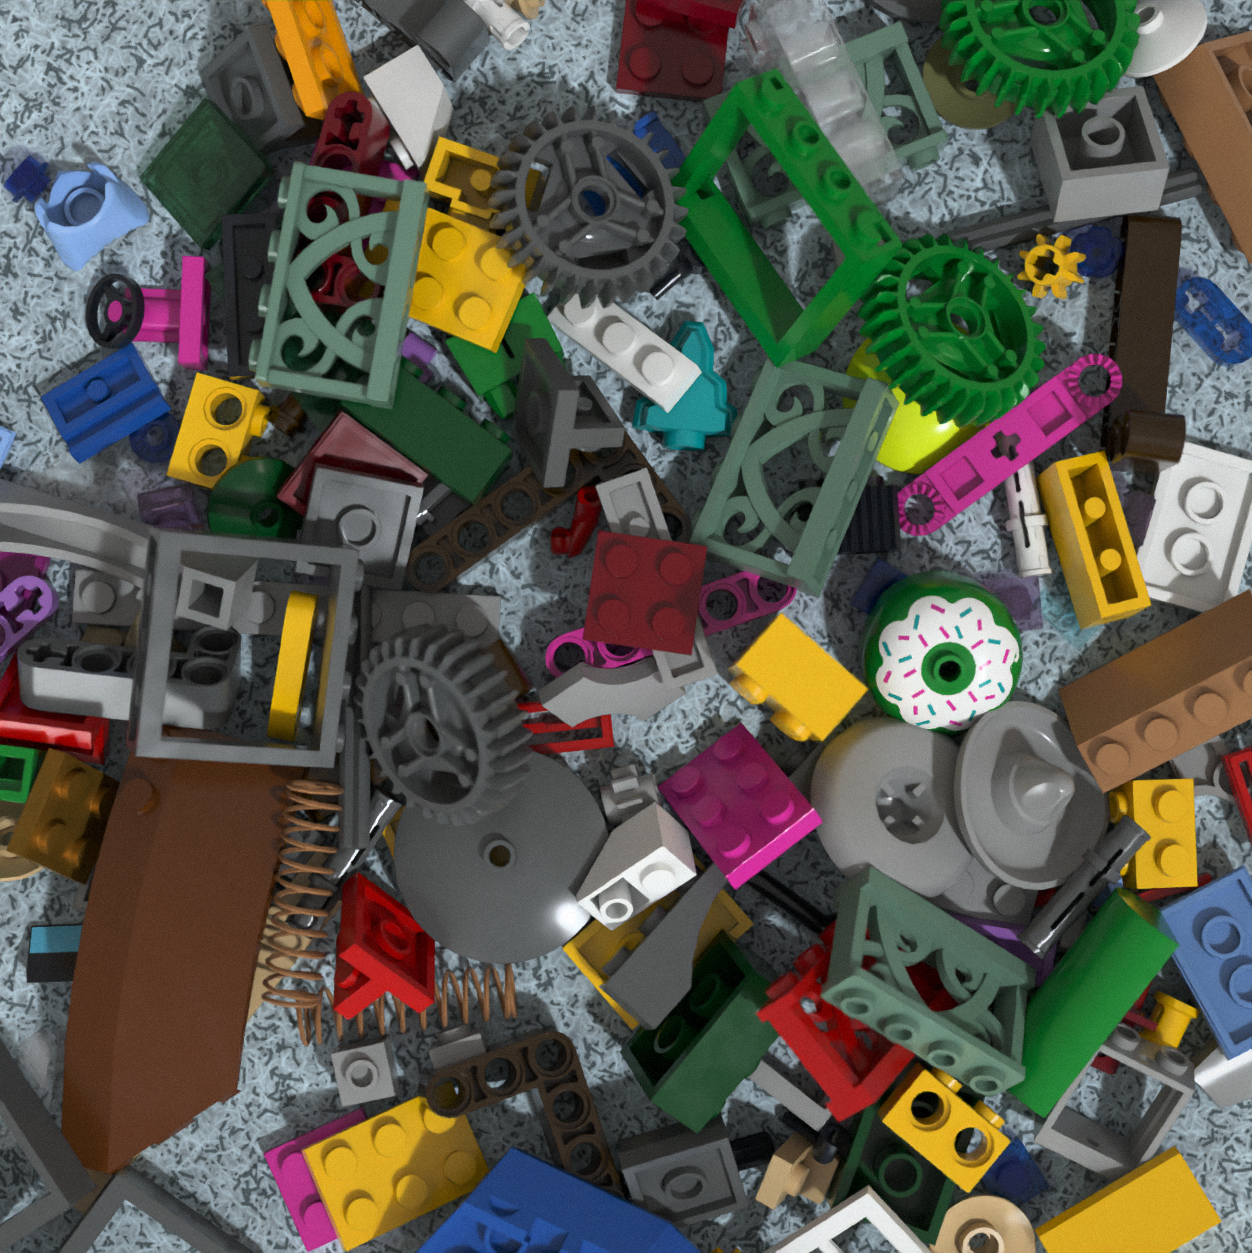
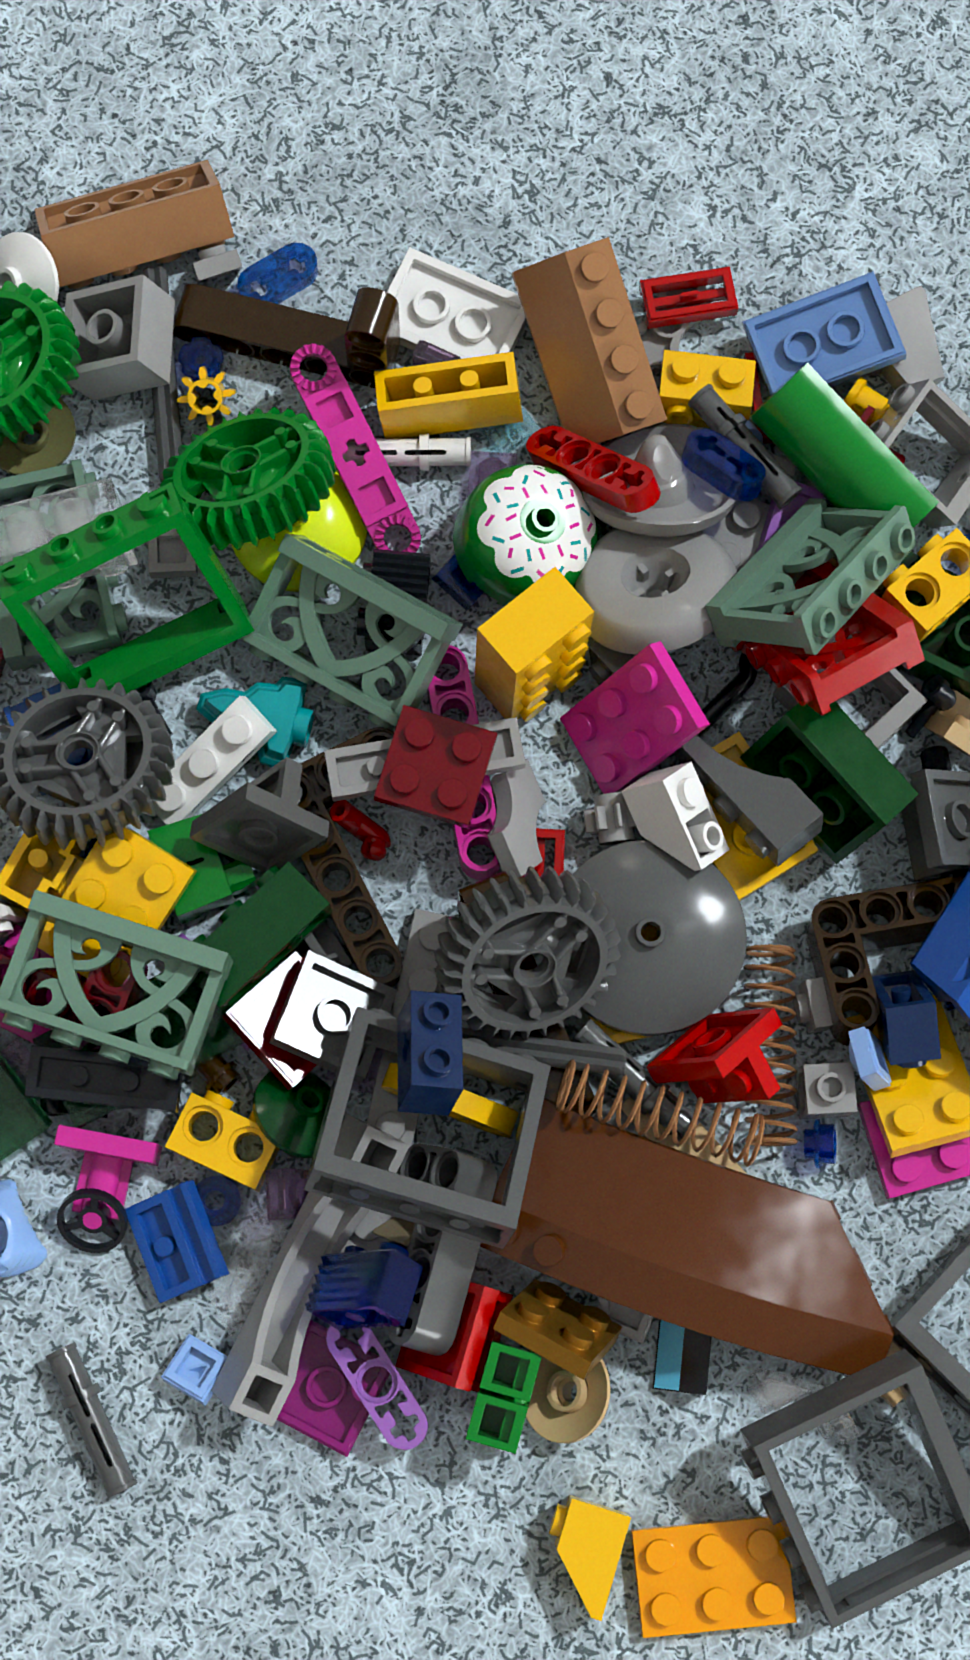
camera: 85 degrees left, 10 degrees down
(73, 607) = (365, 1287): none -> clear blue brick
(310, 1072) = (821, 1143): none -> clear blue plate
(311, 635) = (430, 1053): none -> dark blue brick
(398, 1113) = (868, 1058): none -> light blue tile
(451, 1147) = (906, 1019): none -> dark blue slope
(1030, 718) = (560, 448): none -> red beam
(1052, 865) = (723, 464): none -> clear blue beam
(1214, 248) = (216, 263): none -> light grey plate

